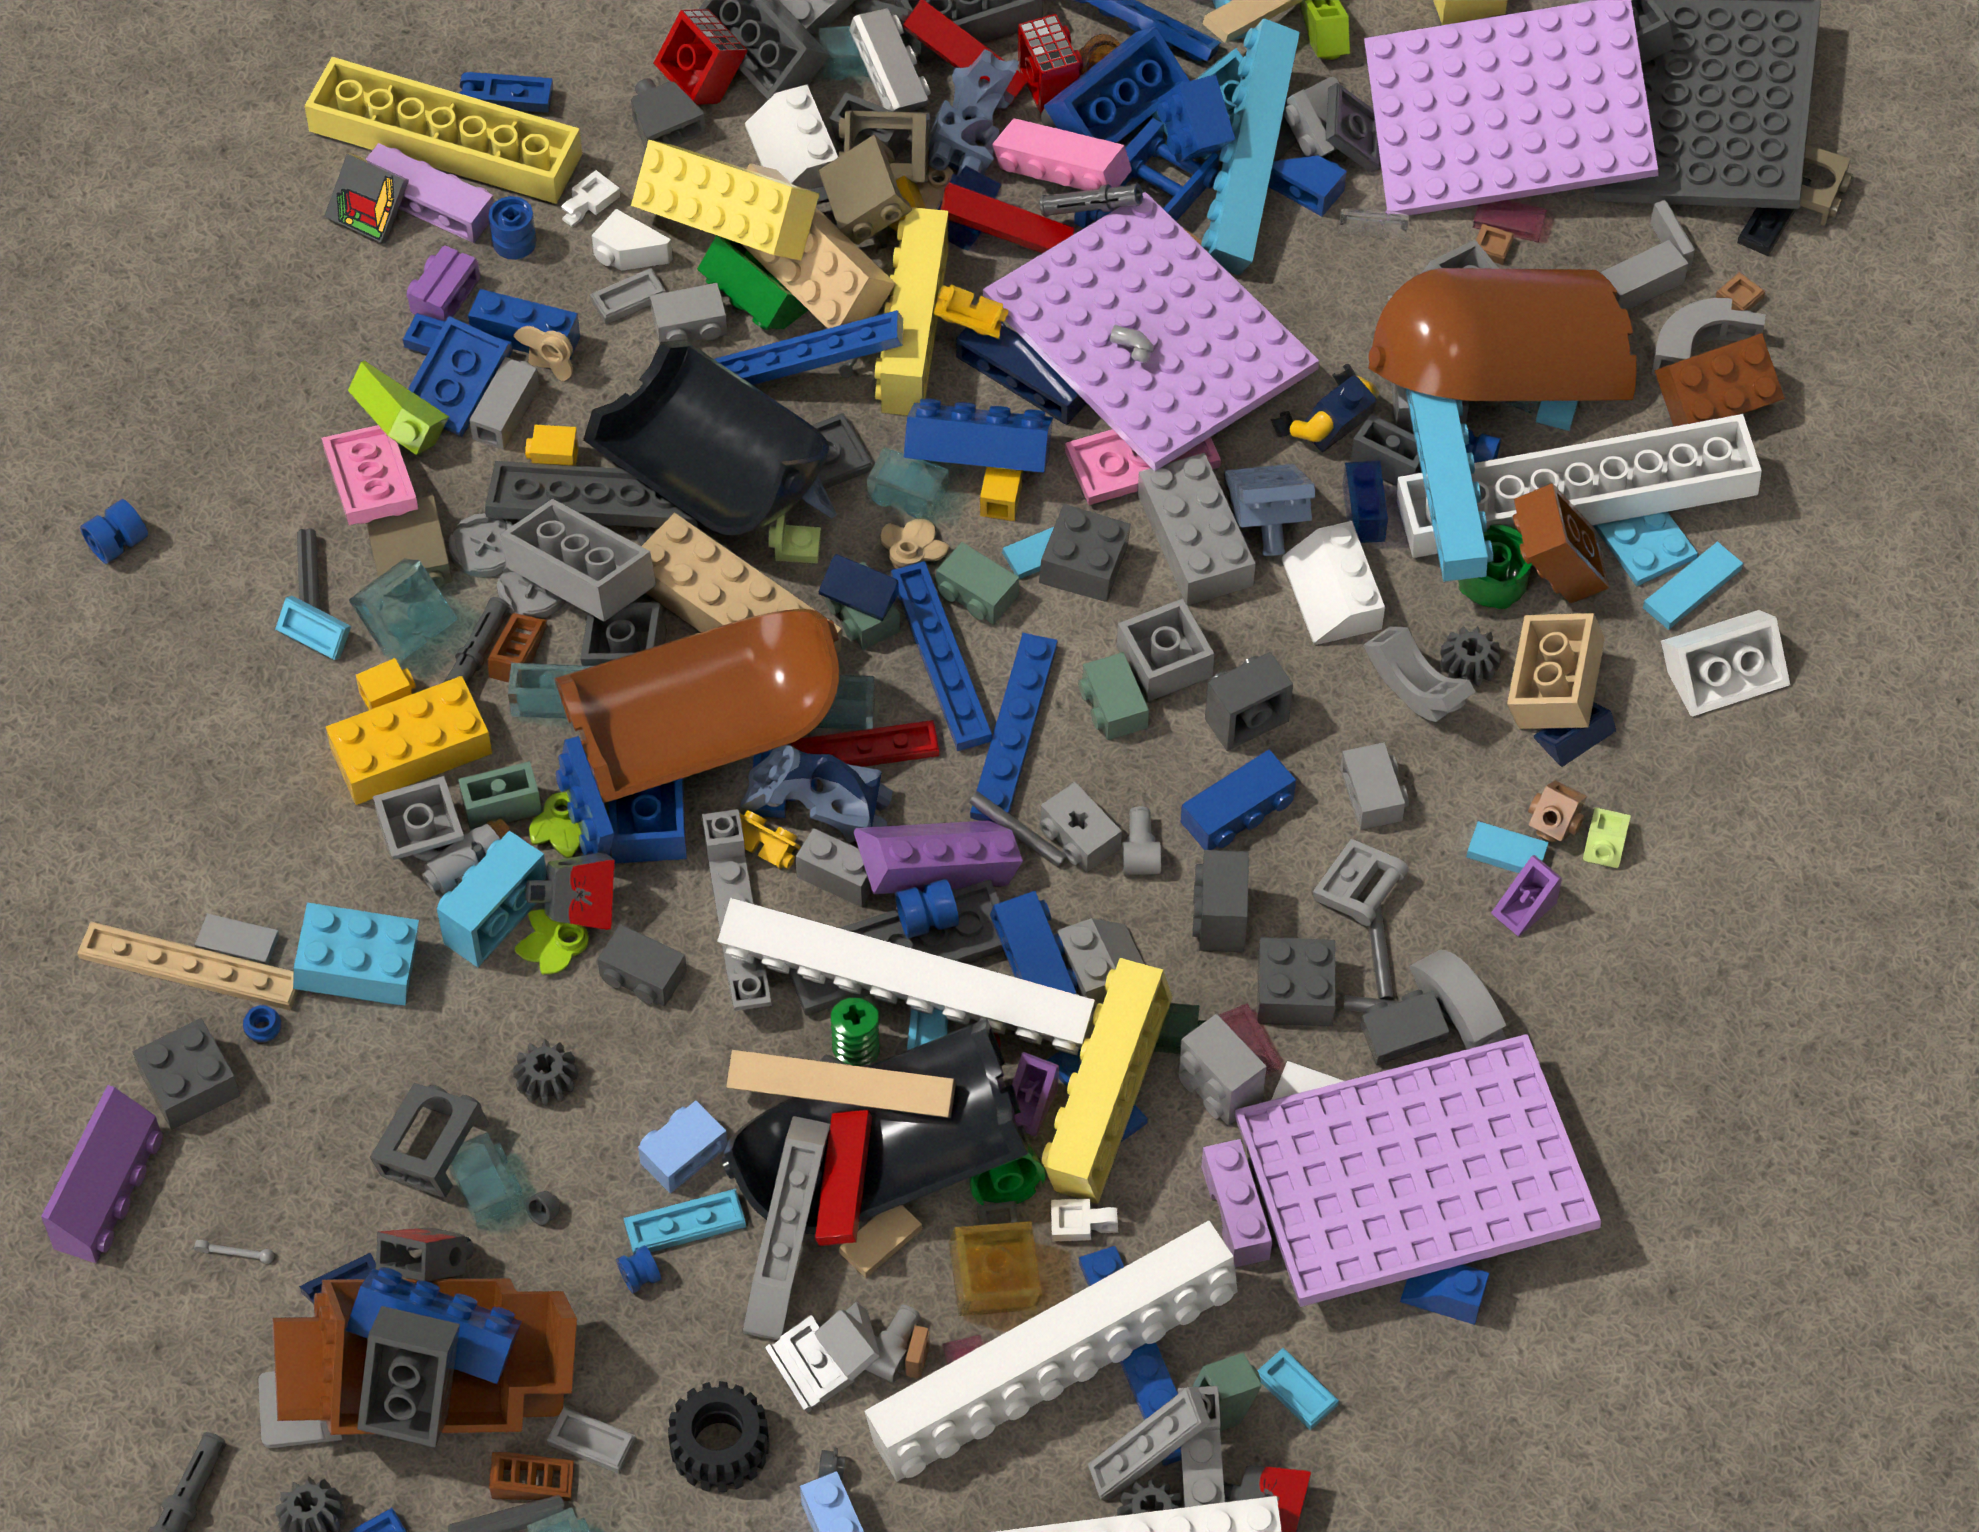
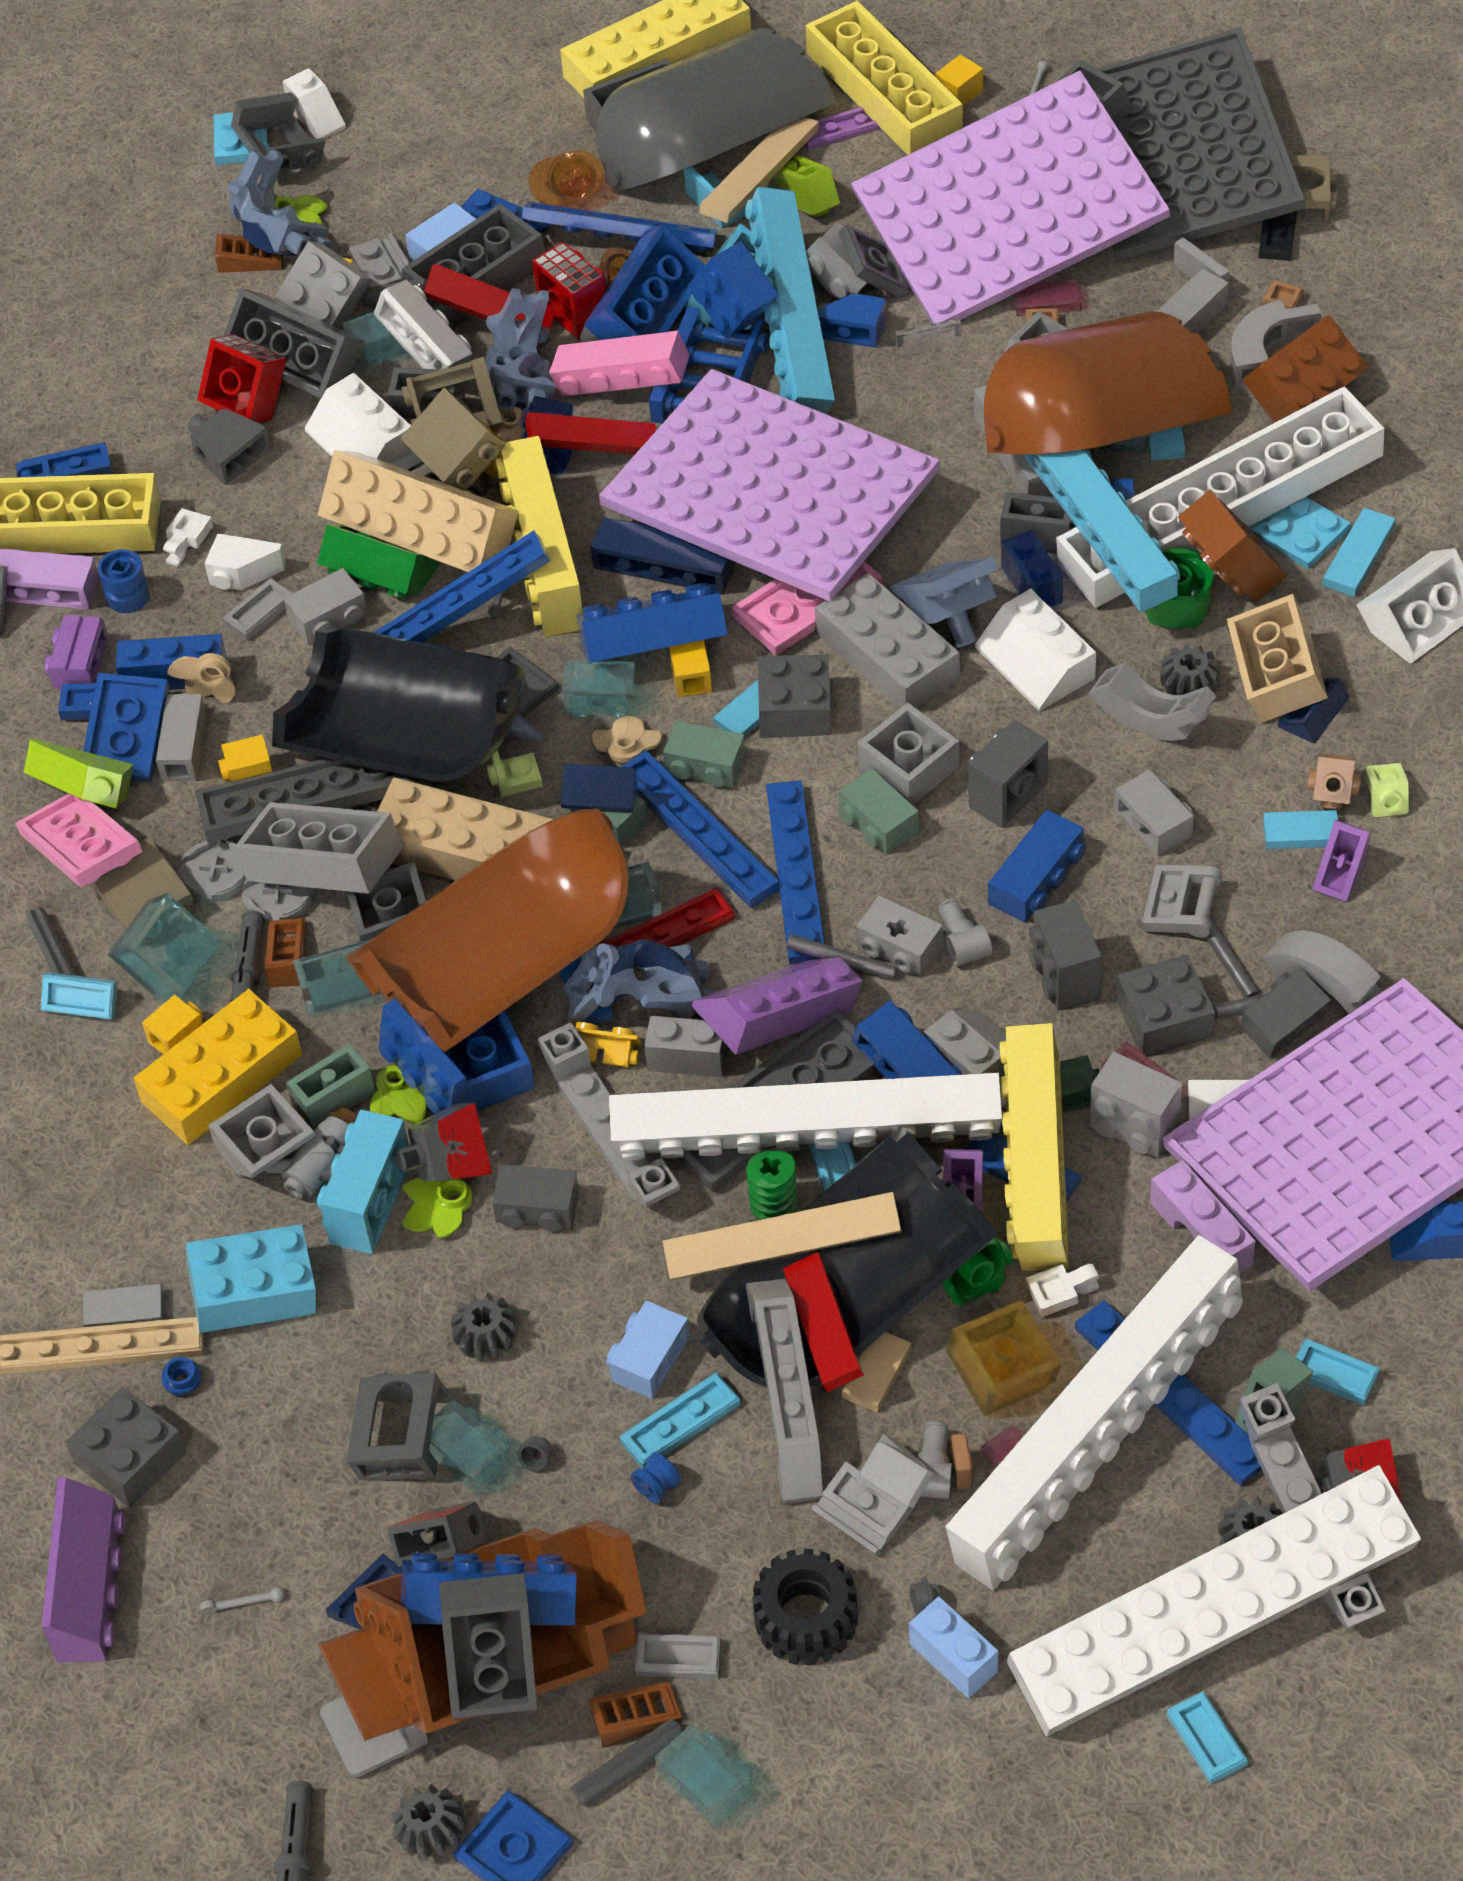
camera: 15 degrees left, 5 degrees down
(725, 200) = (324, 488): light yellow brick -> none
(922, 909) = (796, 1049): blue wheel -> none
(955, 307) = (581, 515): yellow hinge -> none
(1103, 198) = (668, 388): dark grey pin -> none
(1134, 339) = (764, 491): light grey arm -> none
(1149, 1443) = (1230, 1462): light grey tile -> none
(1335, 413) = (971, 506): torso -> none

